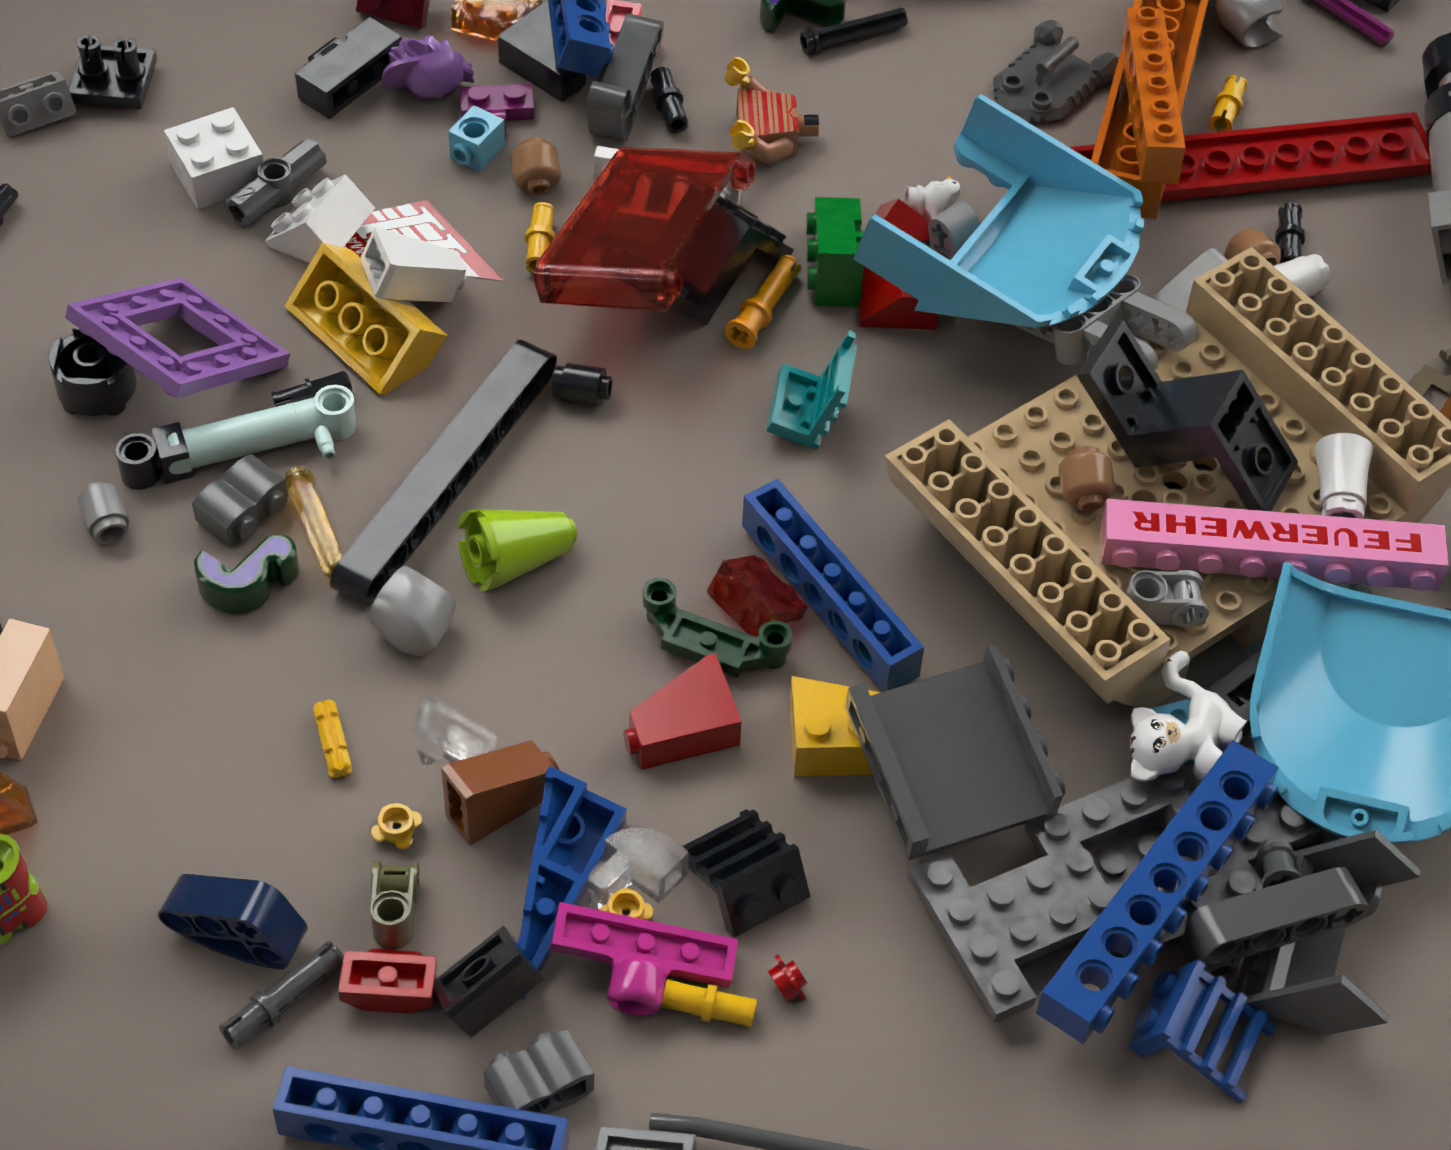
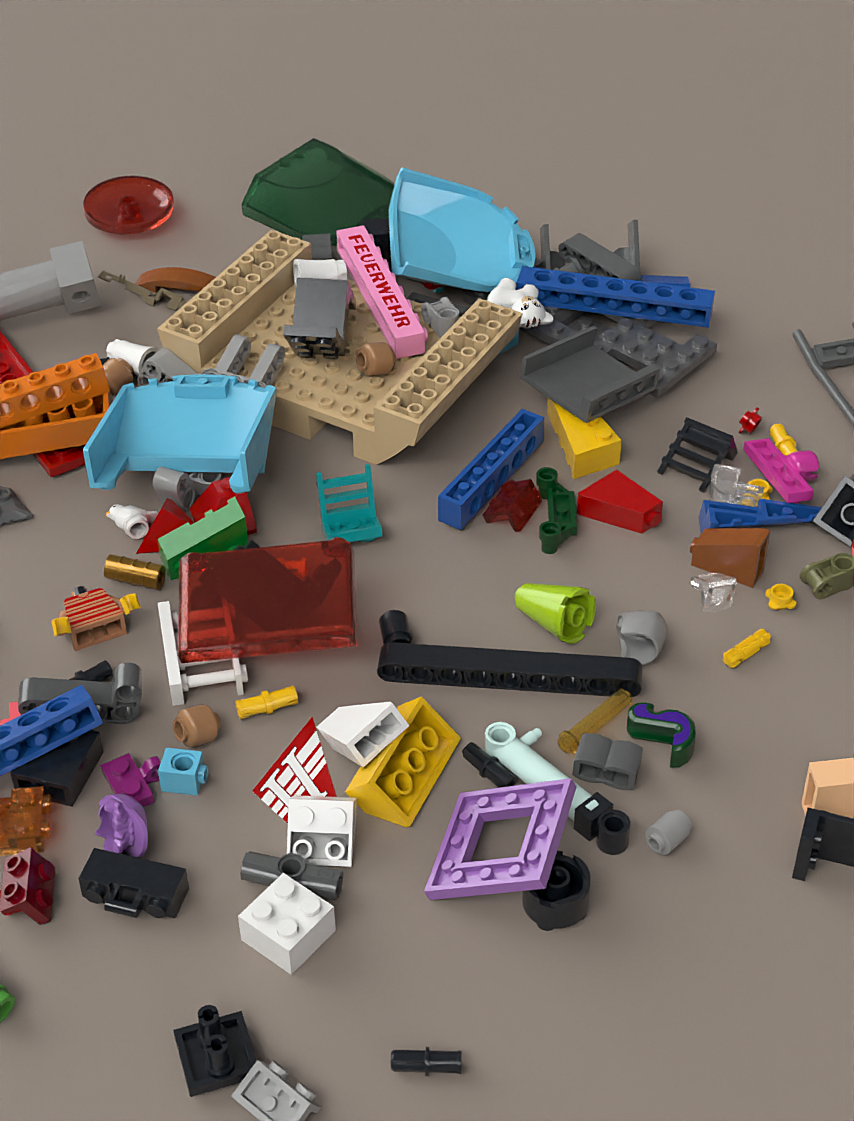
camera: 110 degrees left, 10 degrees down
(830, 178) = (134, 571): none -> pearl gold axle

